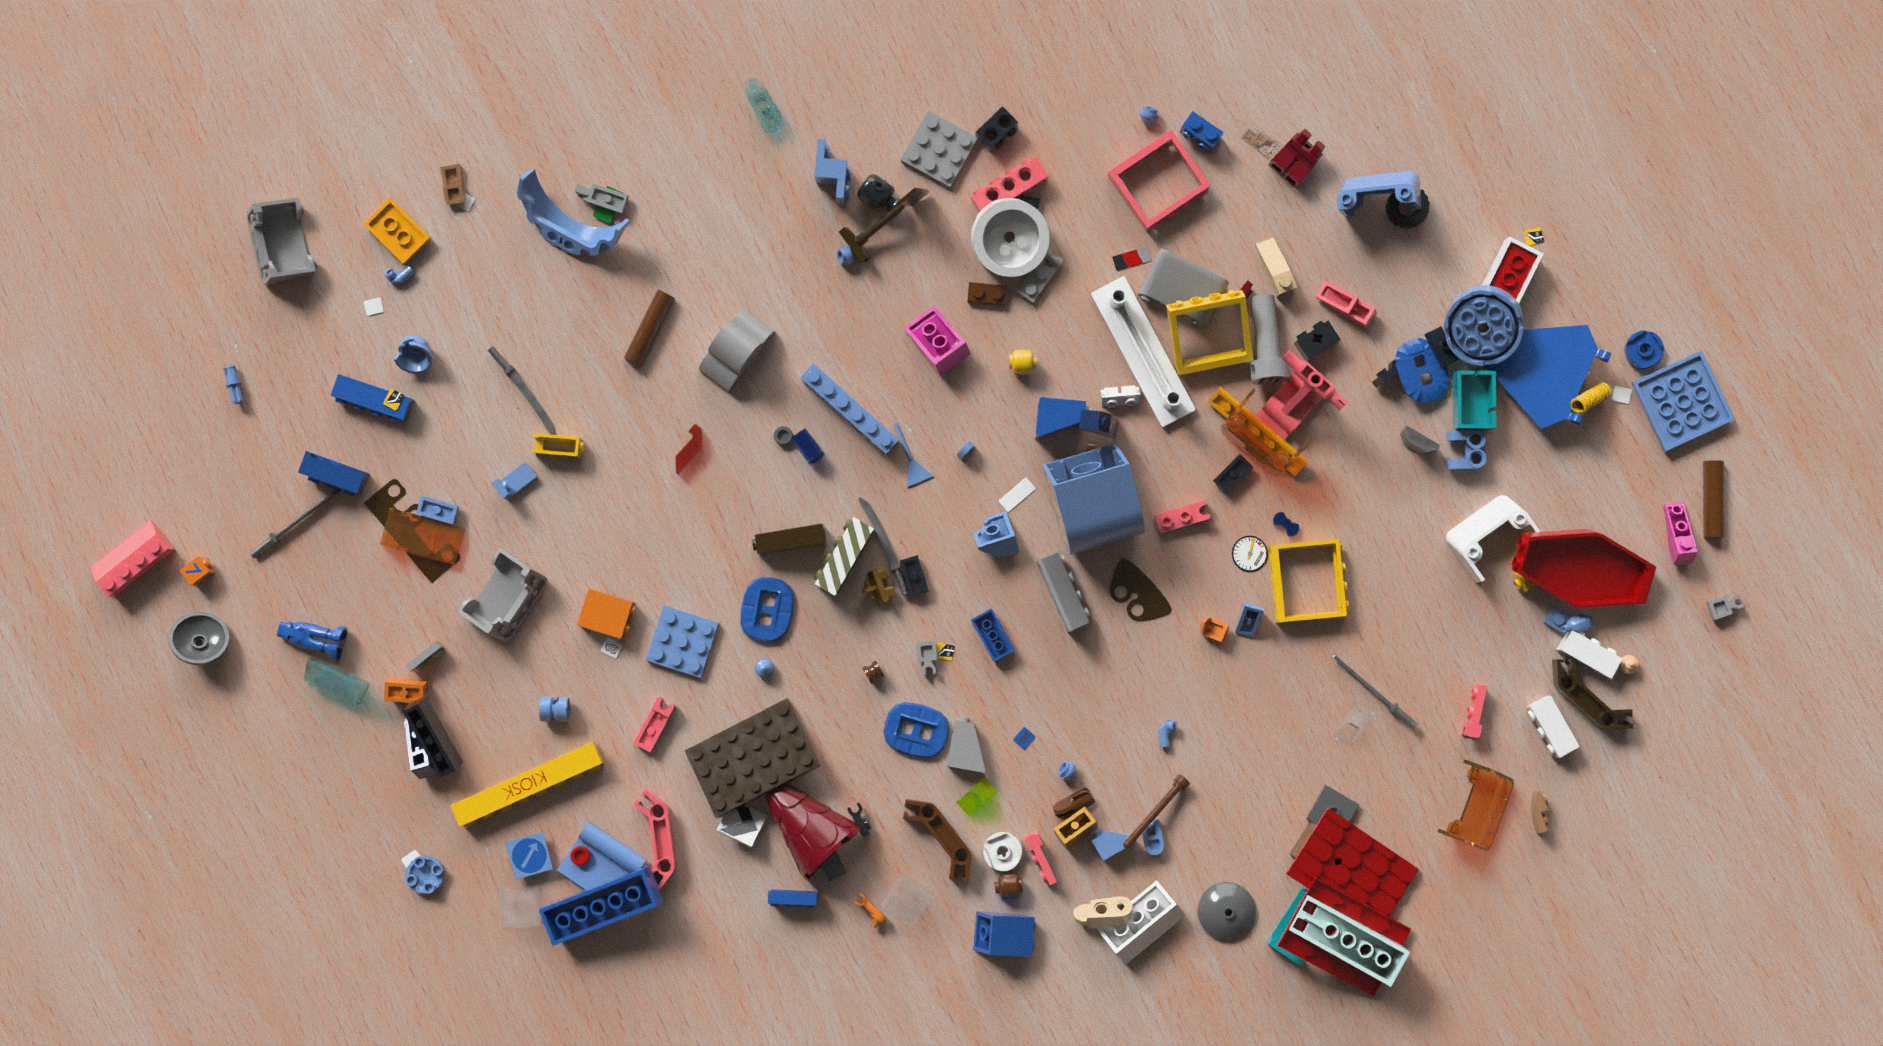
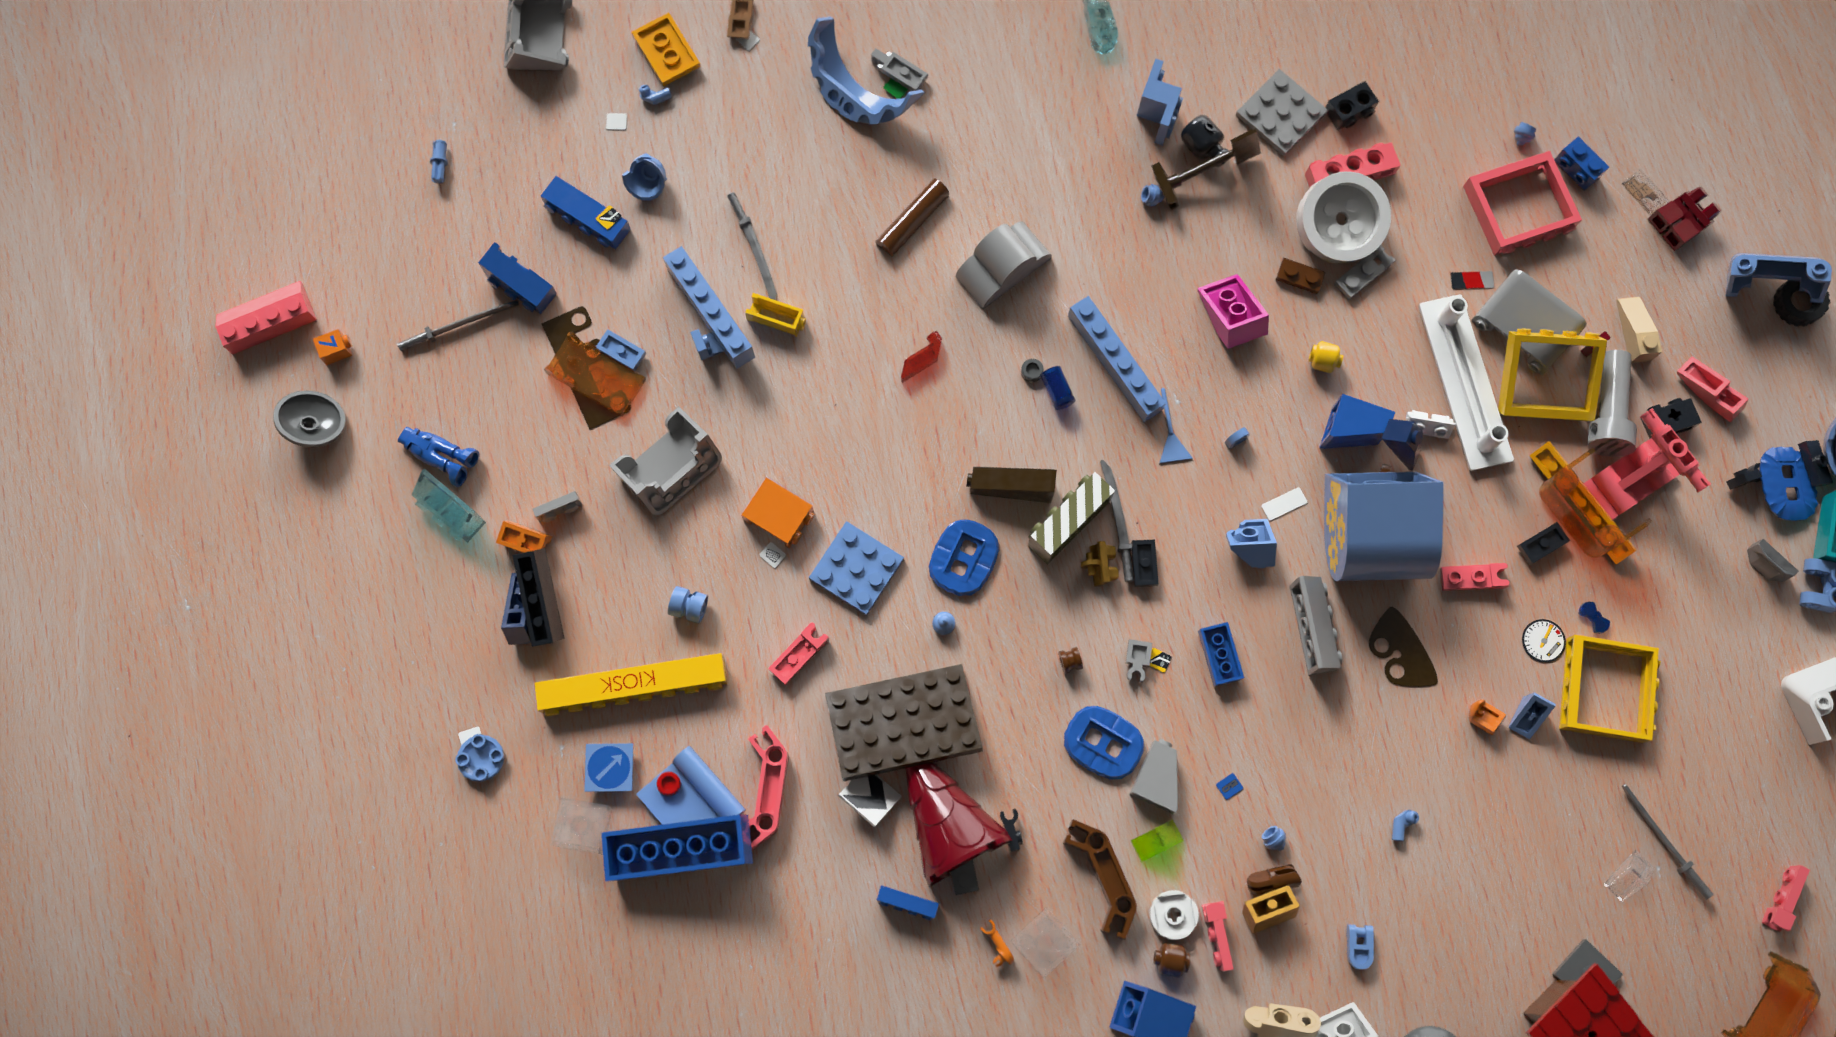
camera: 15 degrees right, 10 degrees down
(500, 455) = (709, 307): none -> medium blue brick
(1108, 843) = (1308, 939): medium blue slope -> none
(1180, 783) = (1408, 890): reddish brown piece -> none

